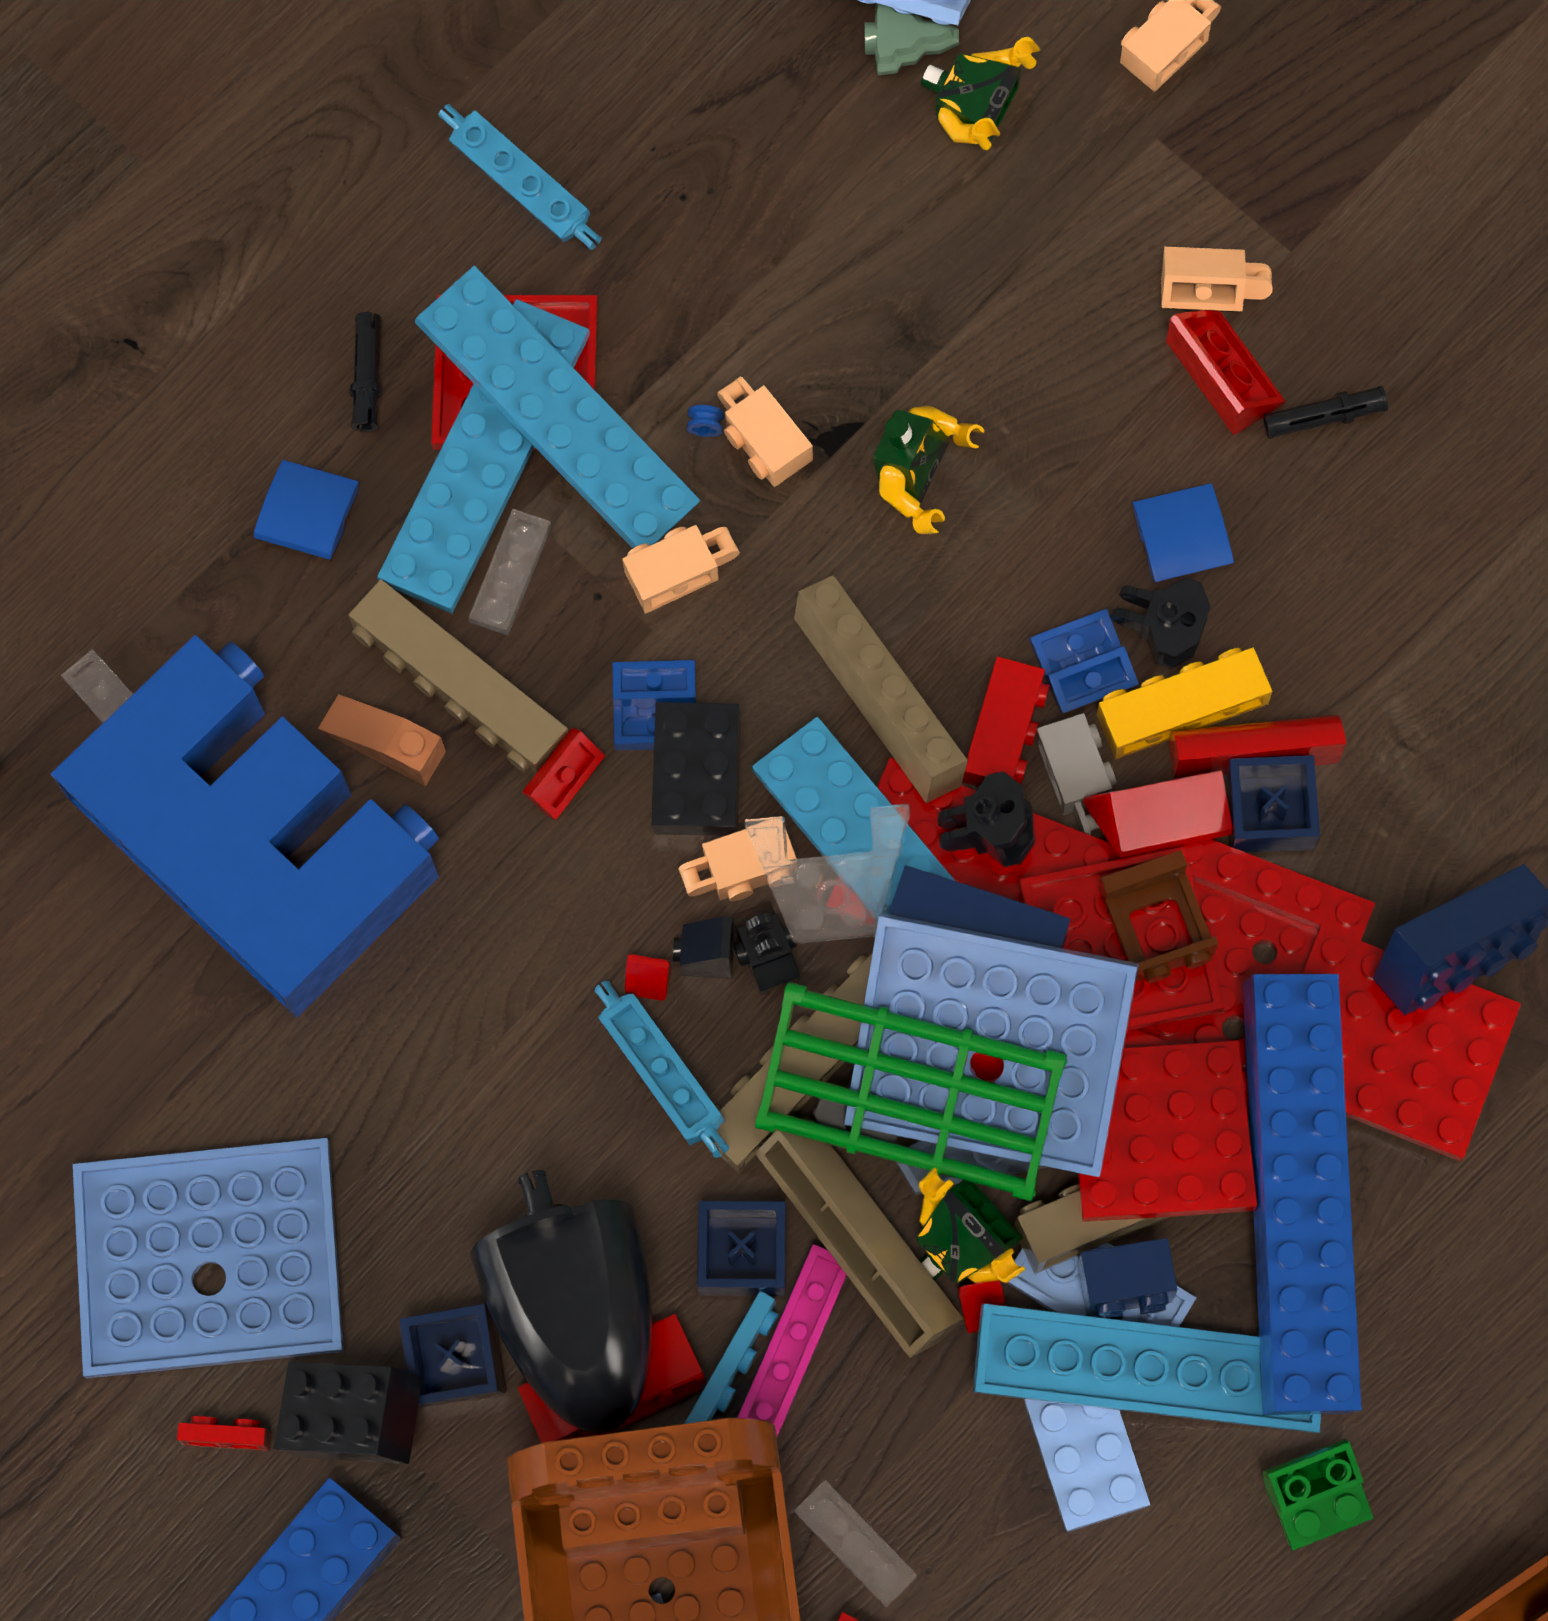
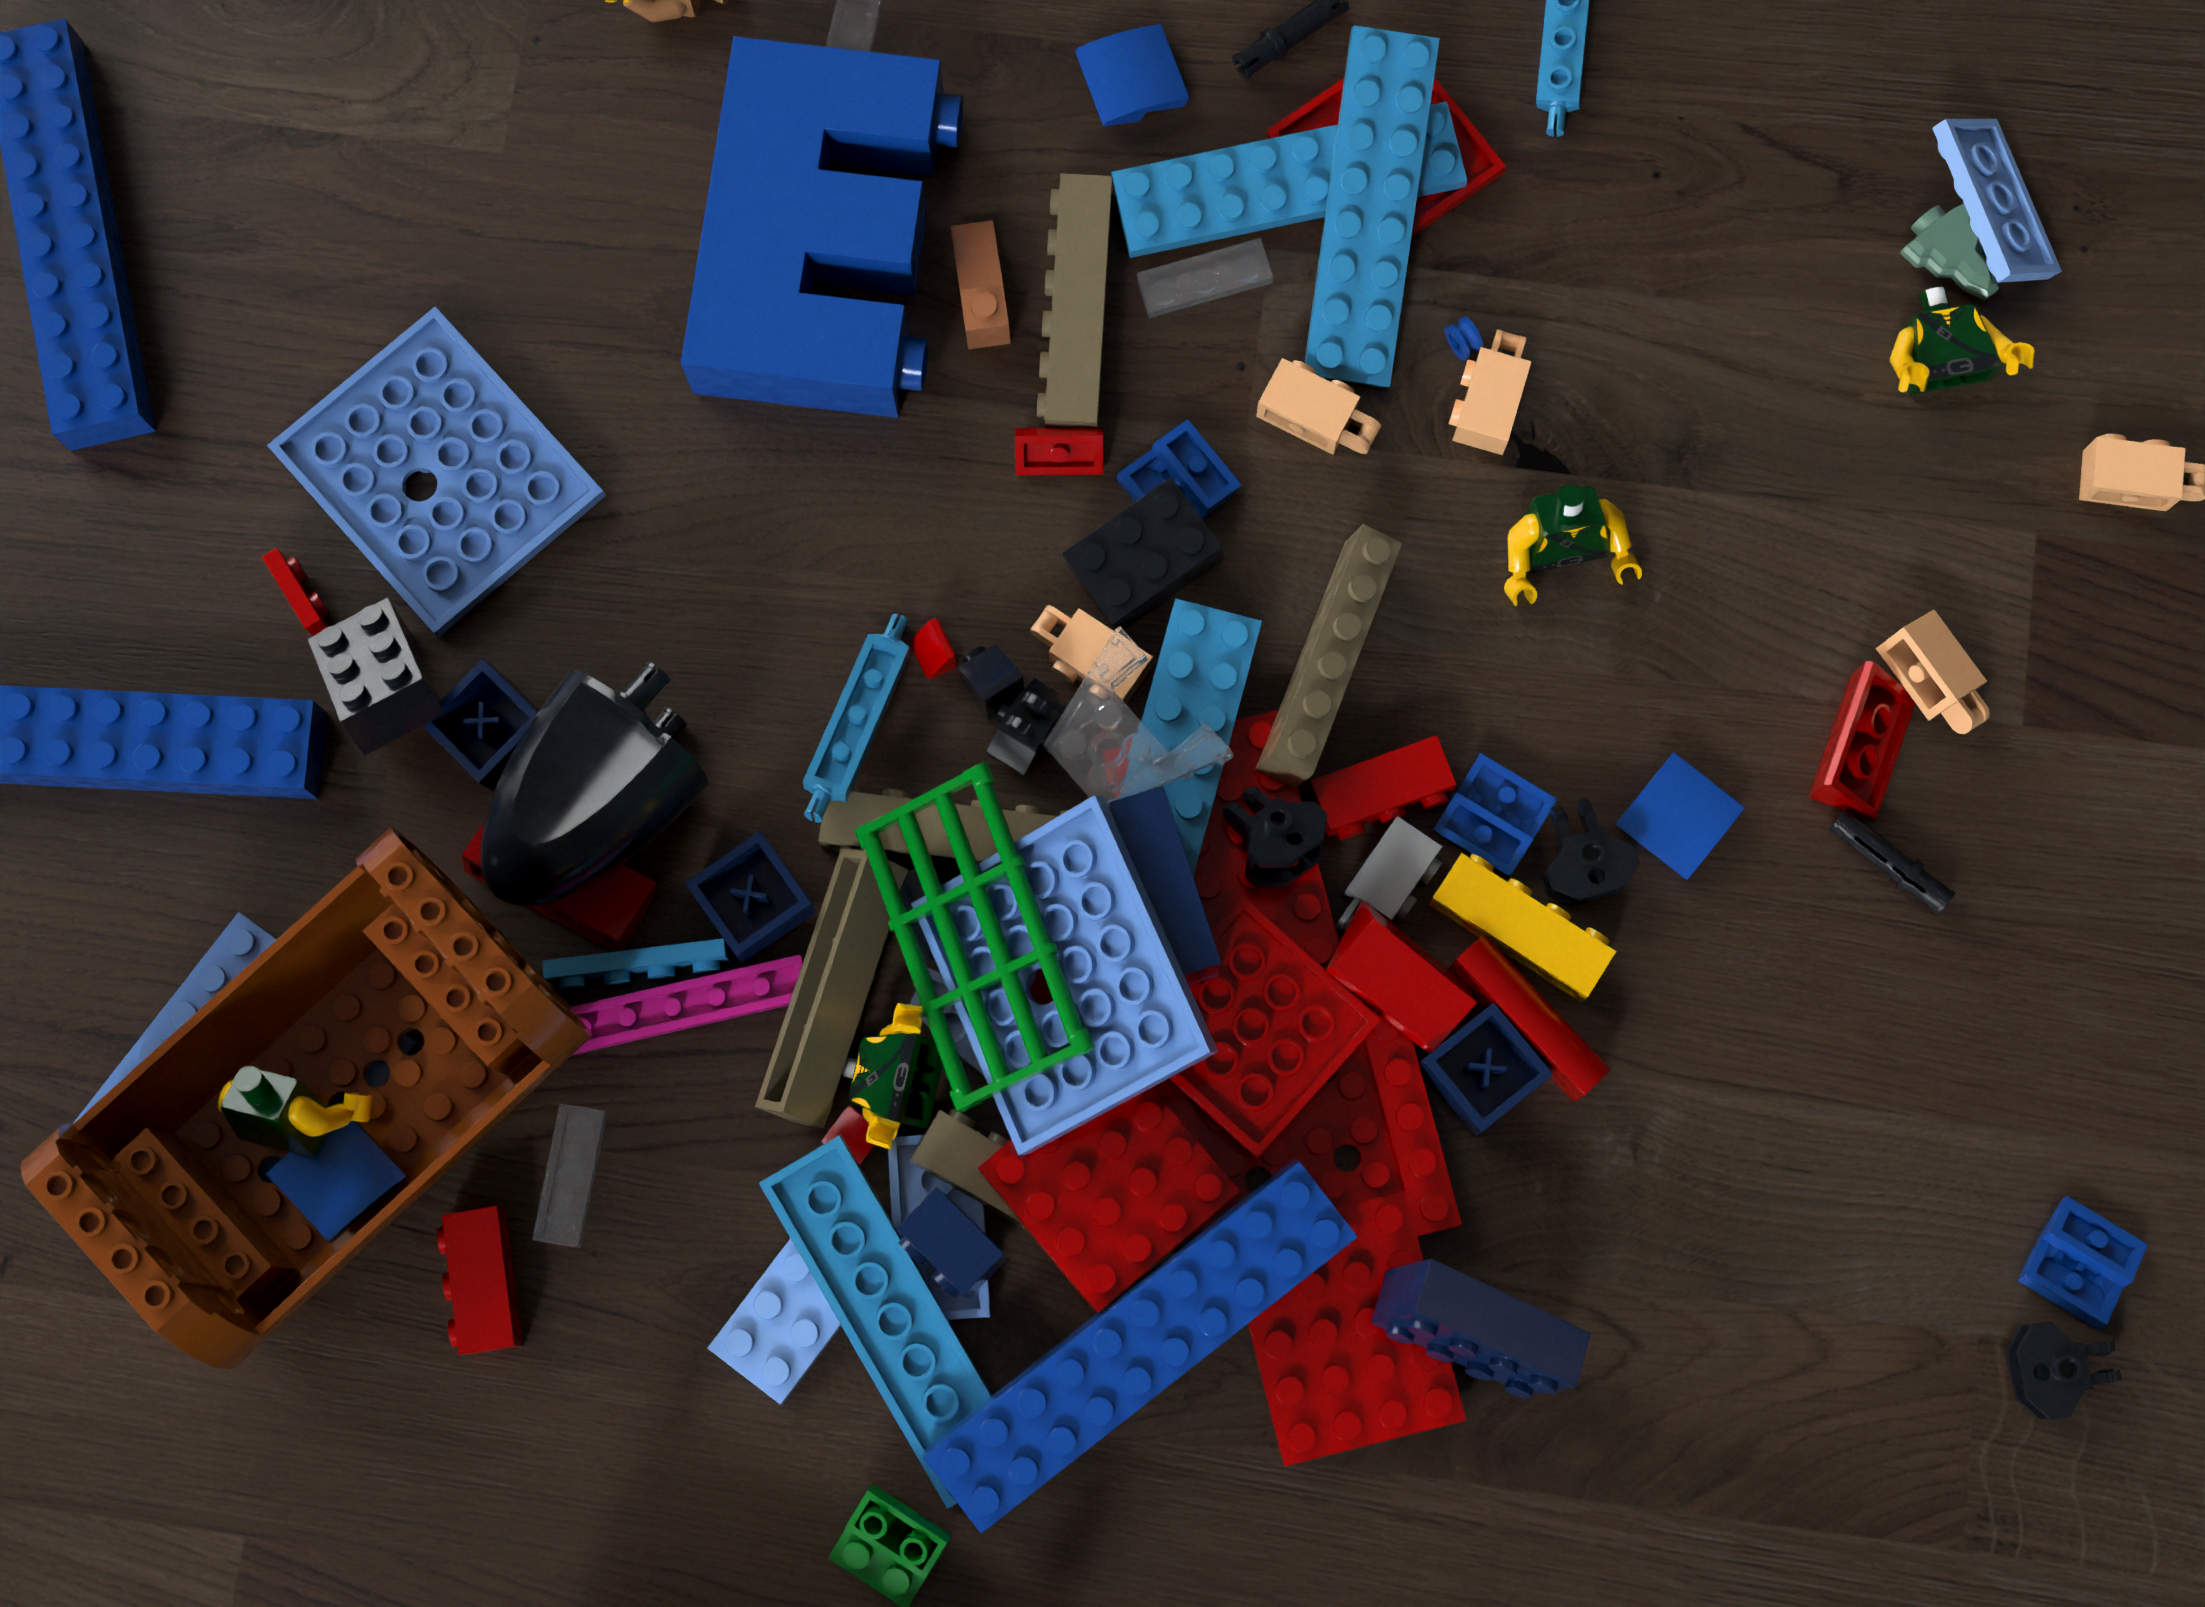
camera: 50 degrees right, 5 degrees up
(1146, 886) = (1313, 1010): reddish brown window -> none

